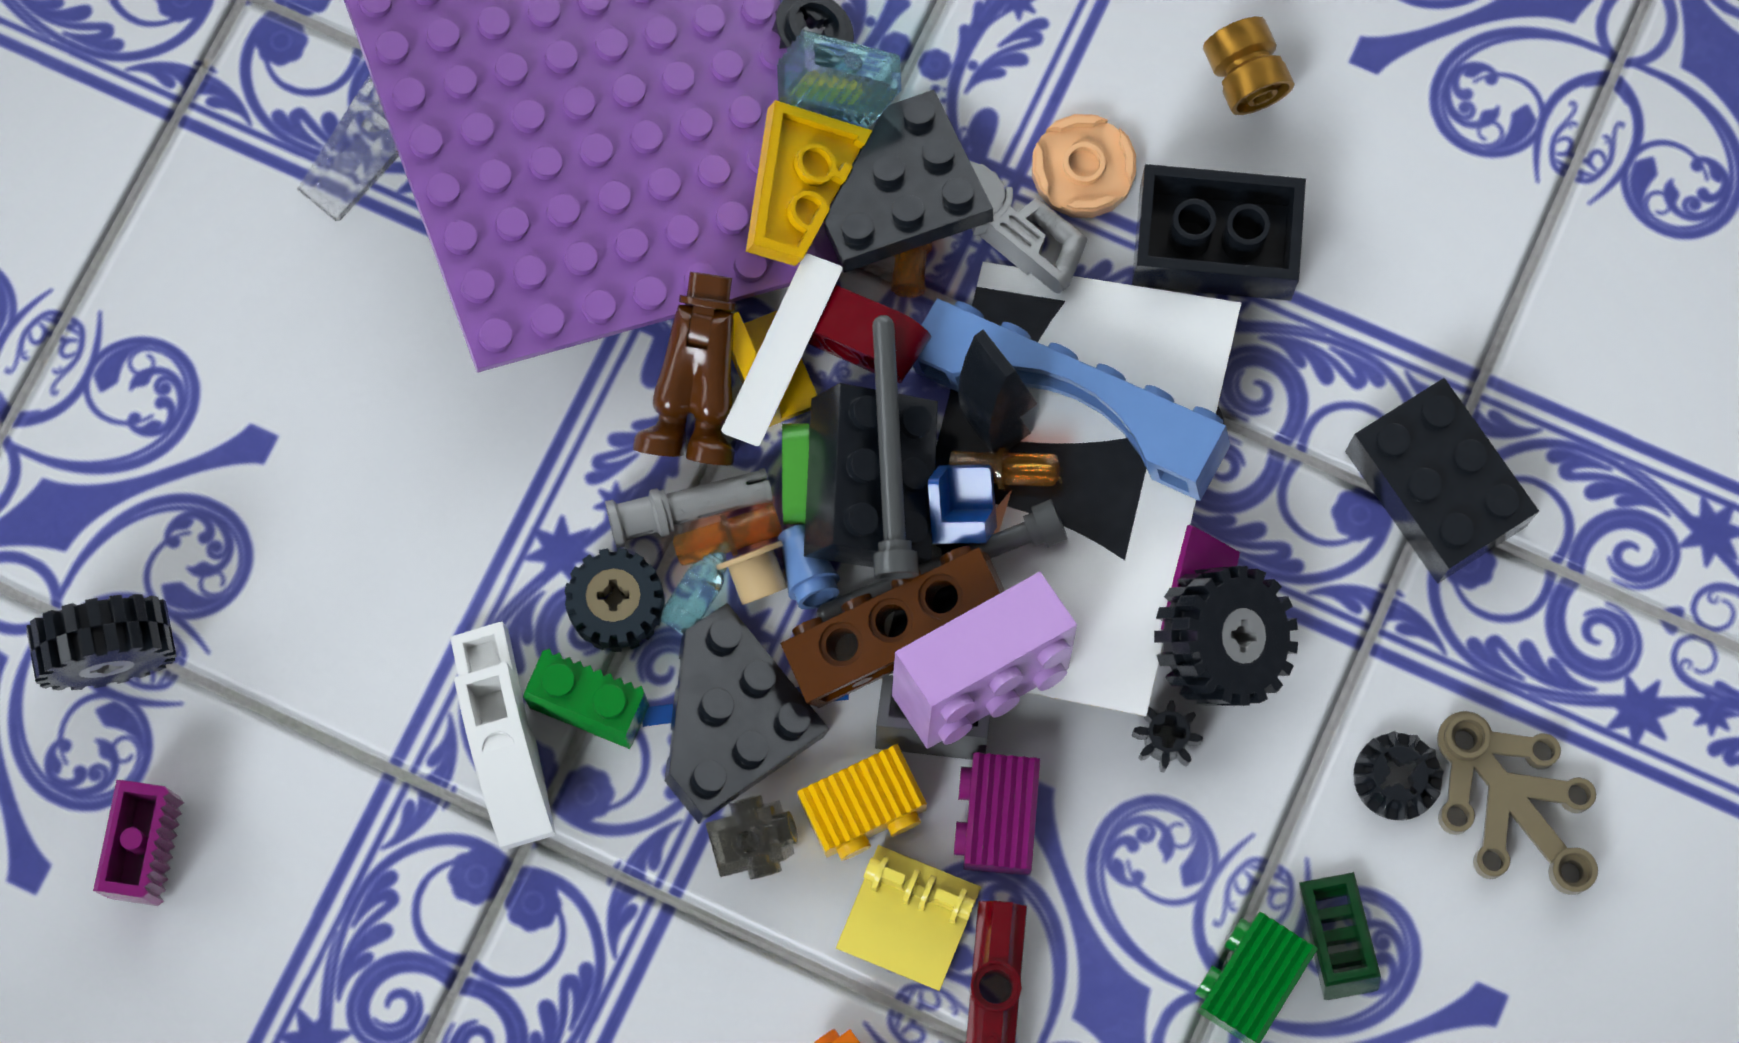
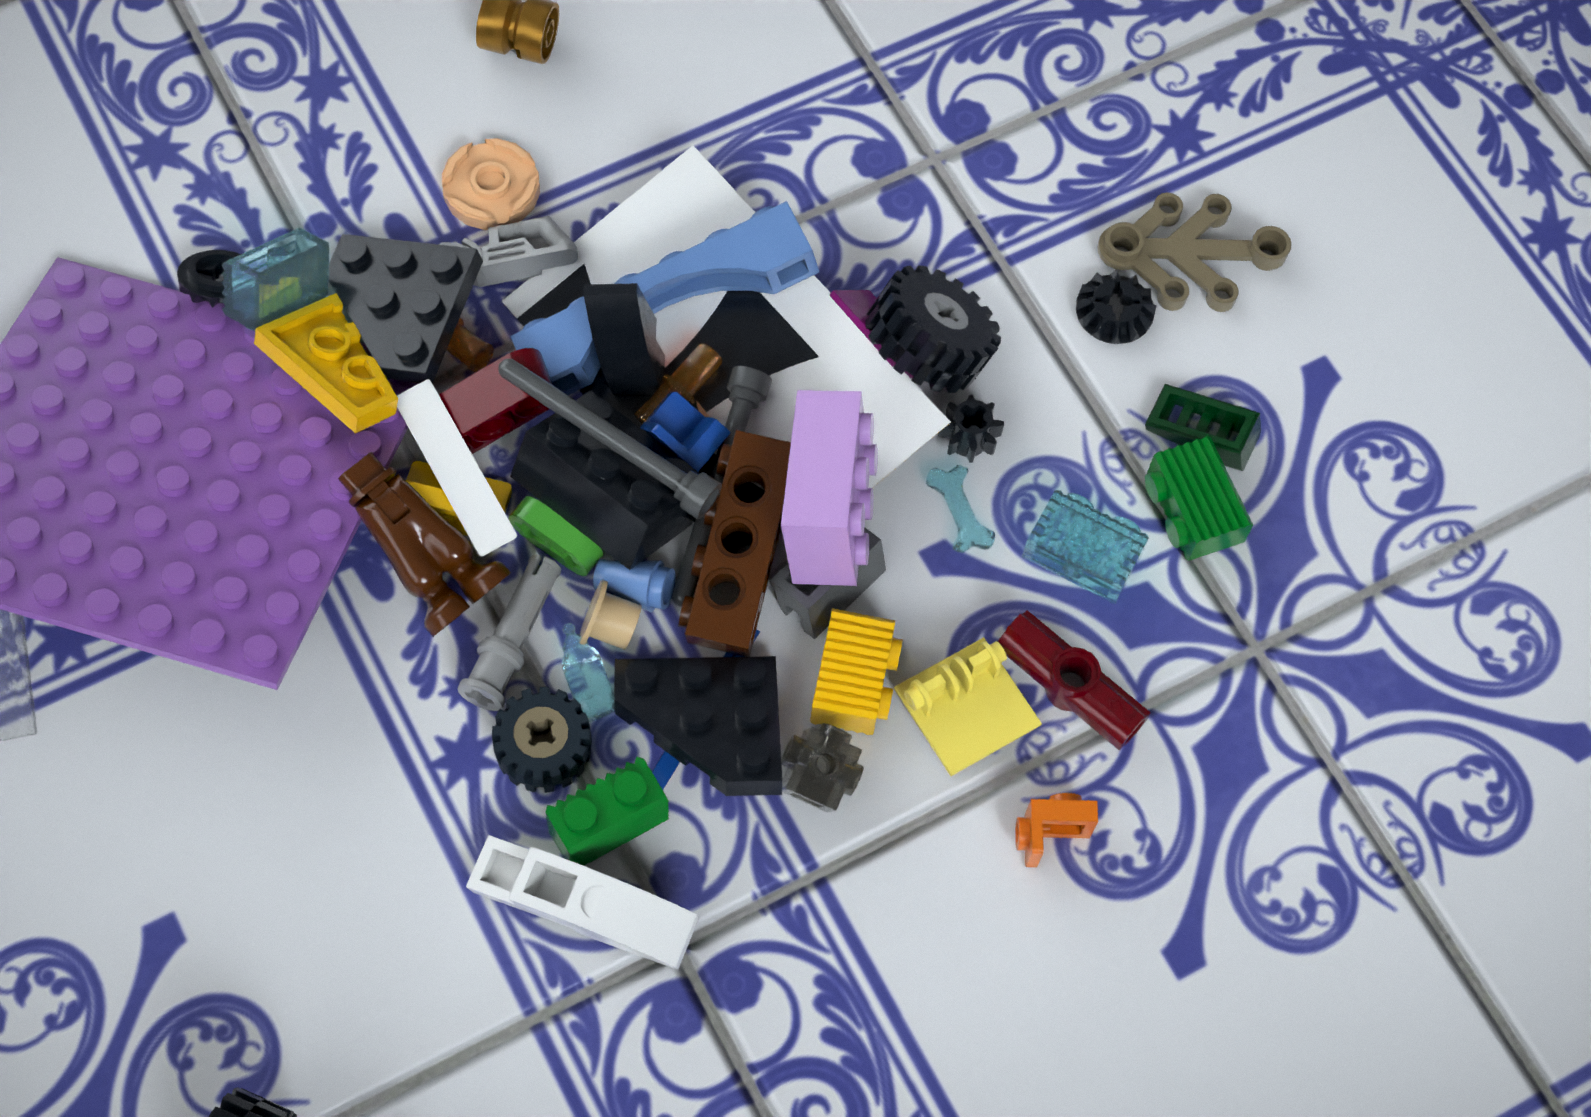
camera: 60 degrees left, 10 degrees down
(737, 531) = (564, 609): clear orange axle -> none
(1000, 813) = (939, 582): magenta brick -> none
(1075, 804) = (970, 531): none -> clear light blue piece
(1132, 913) = (1085, 545): none -> clear light blue brick
(1219, 232) = (624, 126): black brick -> none
(1441, 480) = (927, 126): black brick -> none

